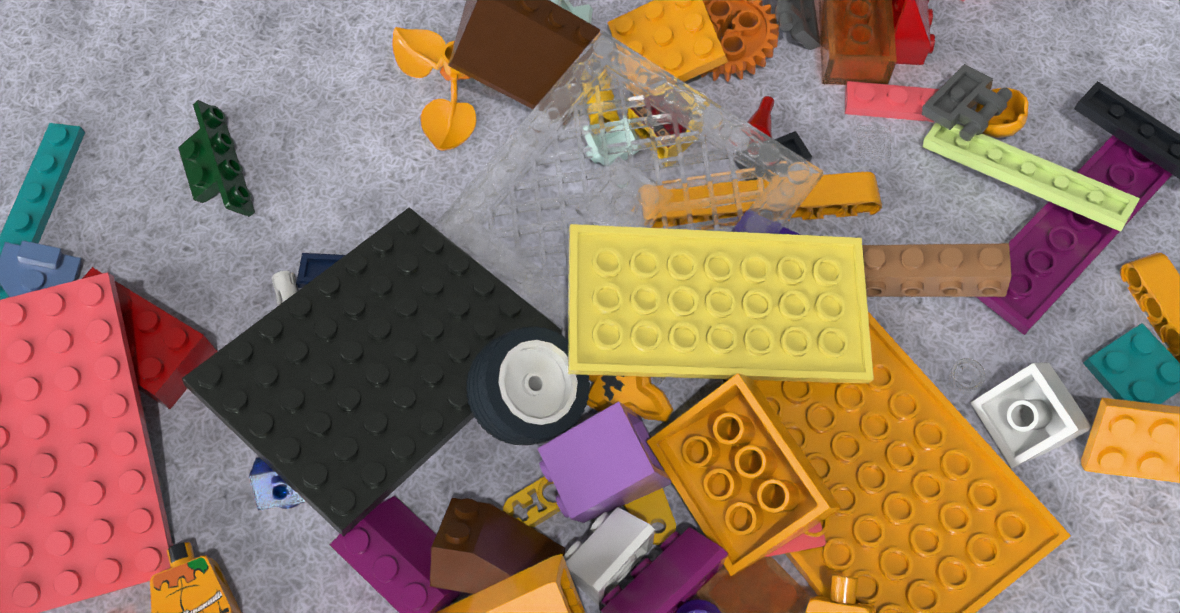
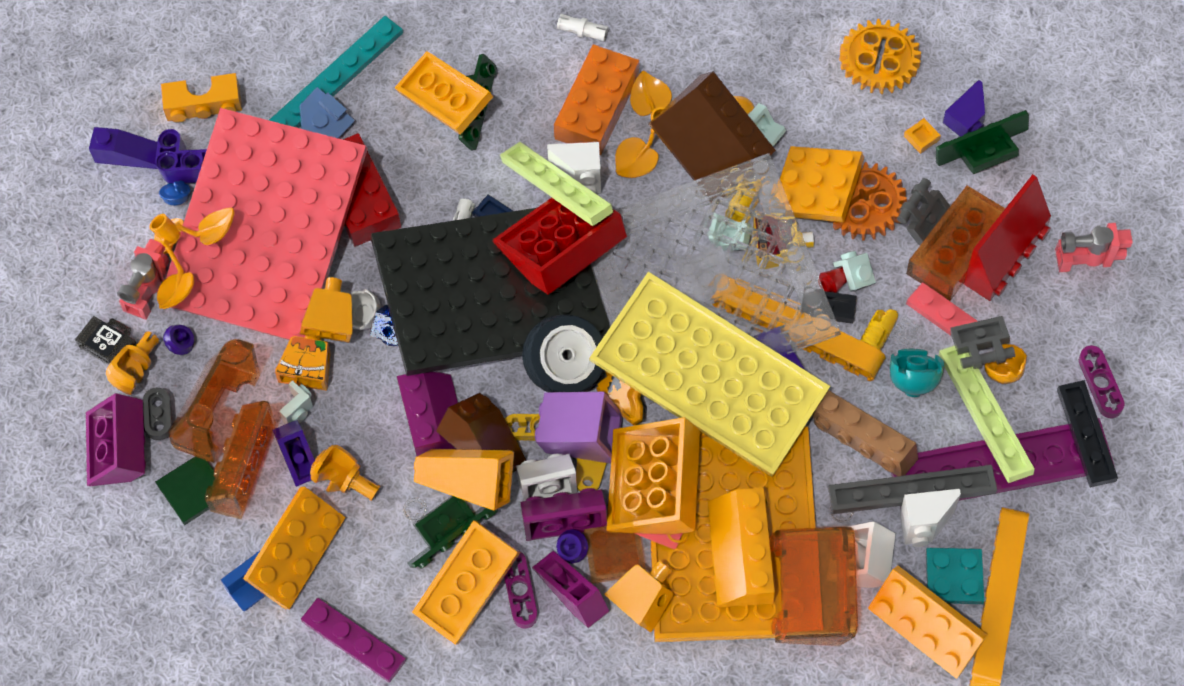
camera: 35 degrees right, 0 degrees up
(175, 165) = (443, 92): none -> light orange plate
(184, 515) = (329, 313): none -> light orange torso
(226, 477) = (363, 309): none -> white hair
(295, 21) = (582, 27): none -> white pin
(363, 83) = (596, 98): none -> orange brick
(384, 191) = (556, 183): none -> yellowish green plate
(391, 162) = (578, 161): none -> white slope
(428, 250) = (557, 244): none -> red slope
(775, 103) = (856, 269): none -> light aqua bracket
(844, 156) = (879, 328): none -> yellow hinge
(911, 493) = (741, 548): none -> light orange slope
(926, 173) = (915, 371): none -> teal cylinder
(1028, 303) = (891, 490): none -> dark grey plate
(1038, 480) = (816, 586): none -> clear orange windscreen
(1072, 322) = (926, 515): none -> white slope
(1092, 68) = (1102, 370): none -> magenta beam

